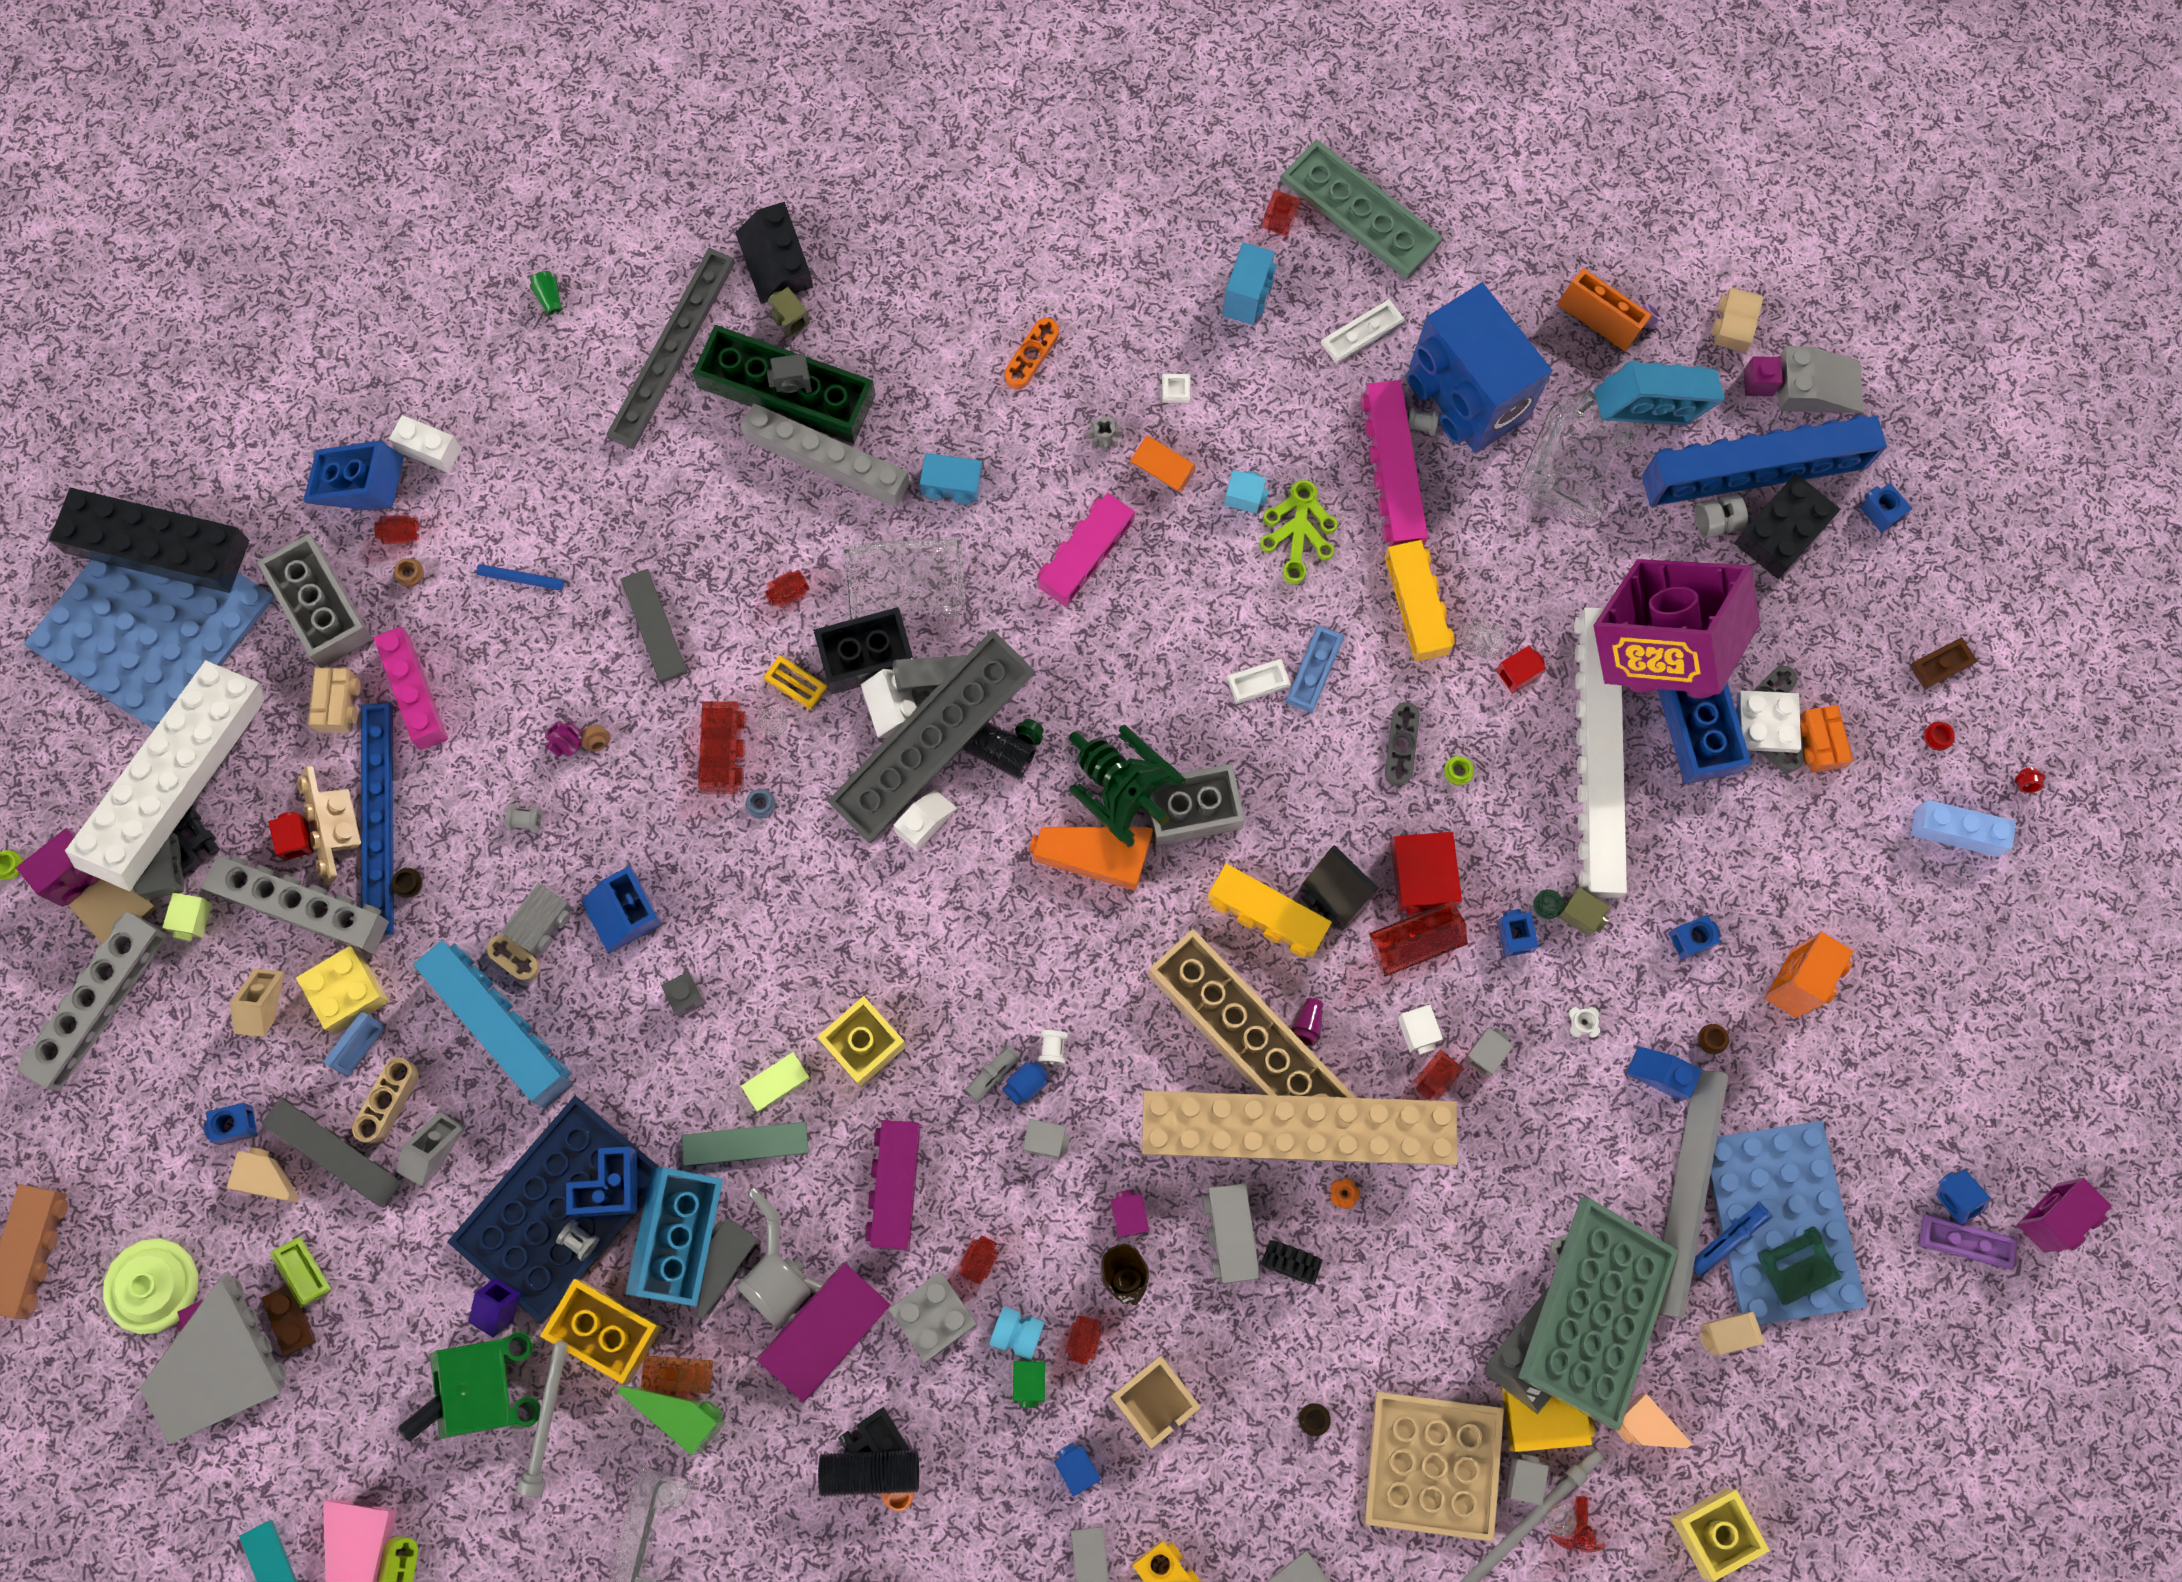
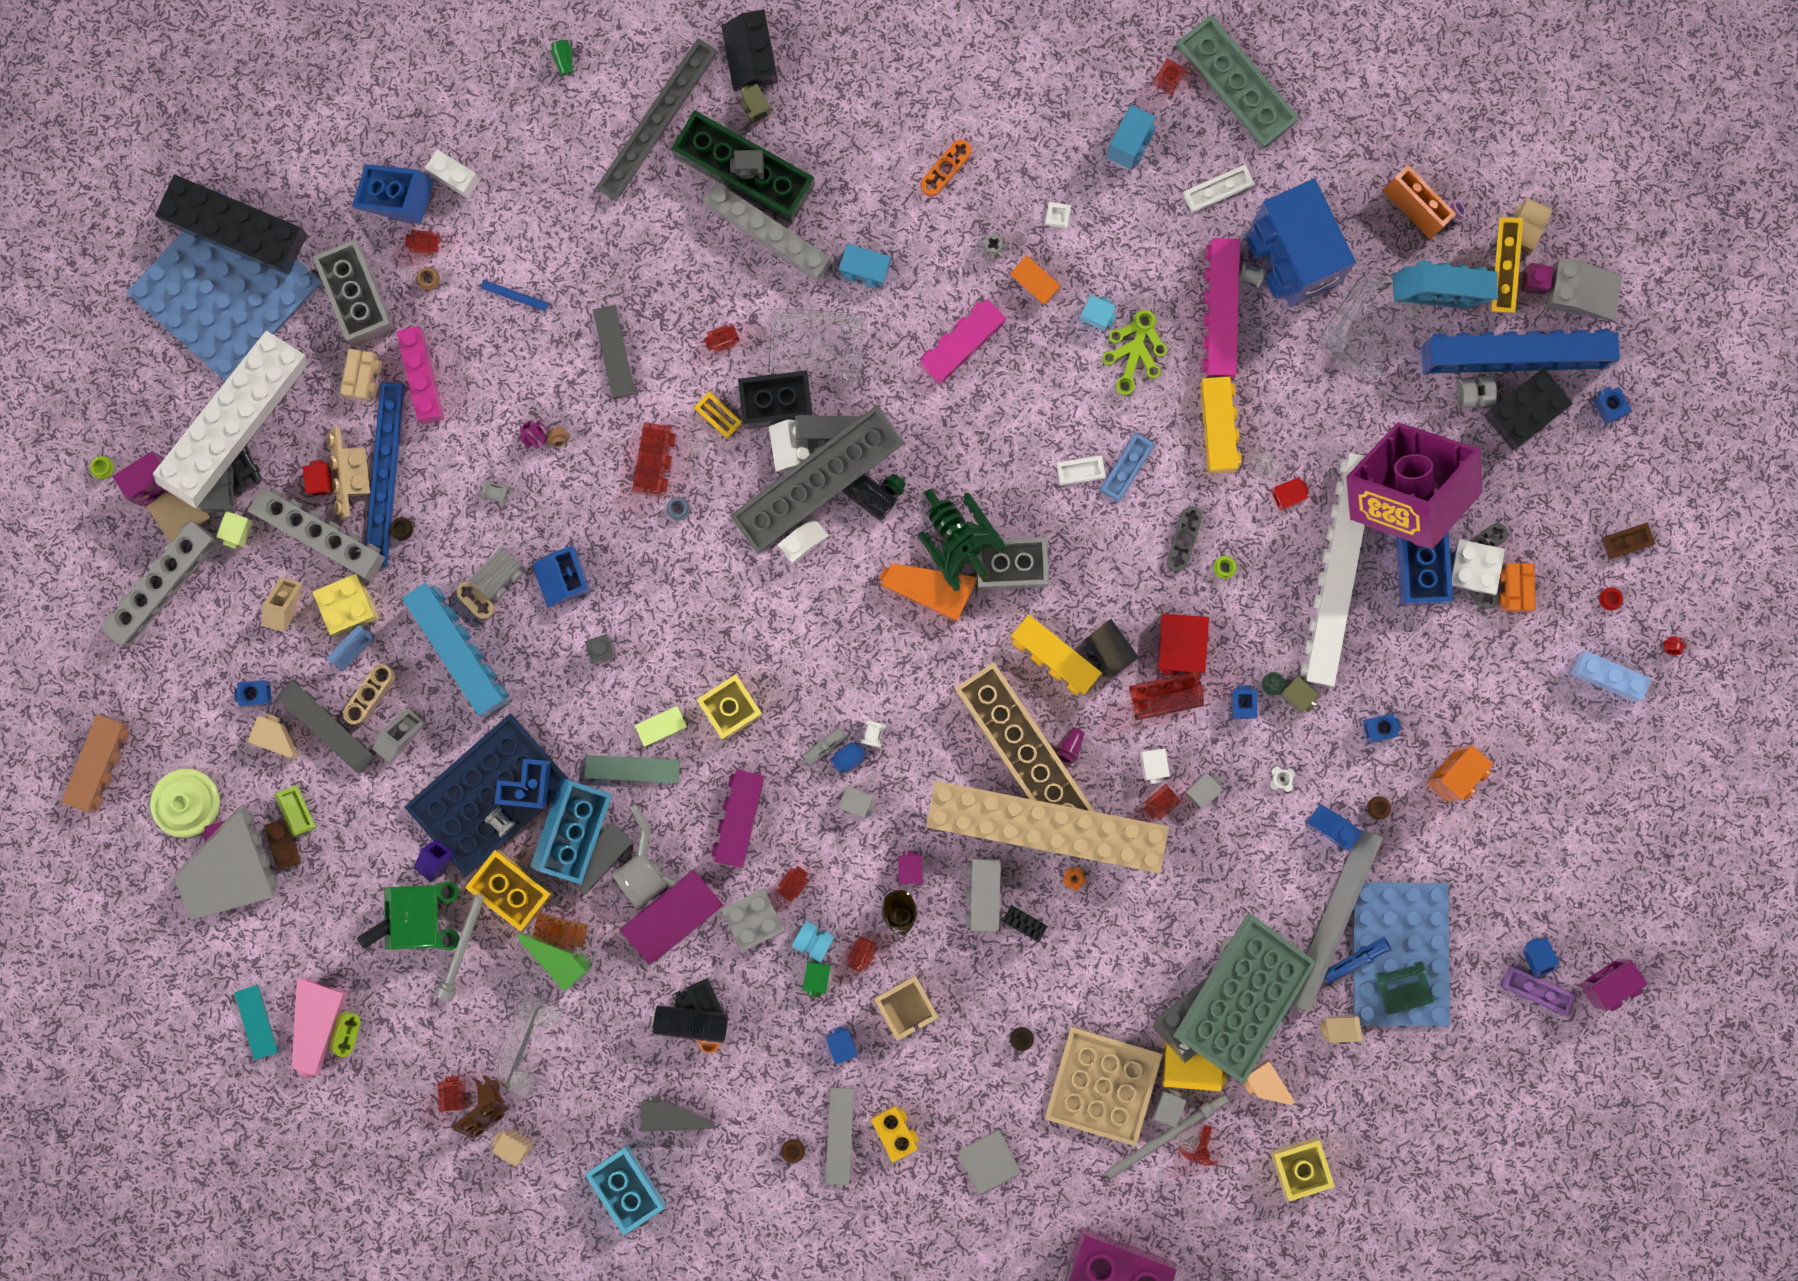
camera: 15 degrees right, 10 degrees up
(1726, 357) = (1507, 263): none -> yellow brick

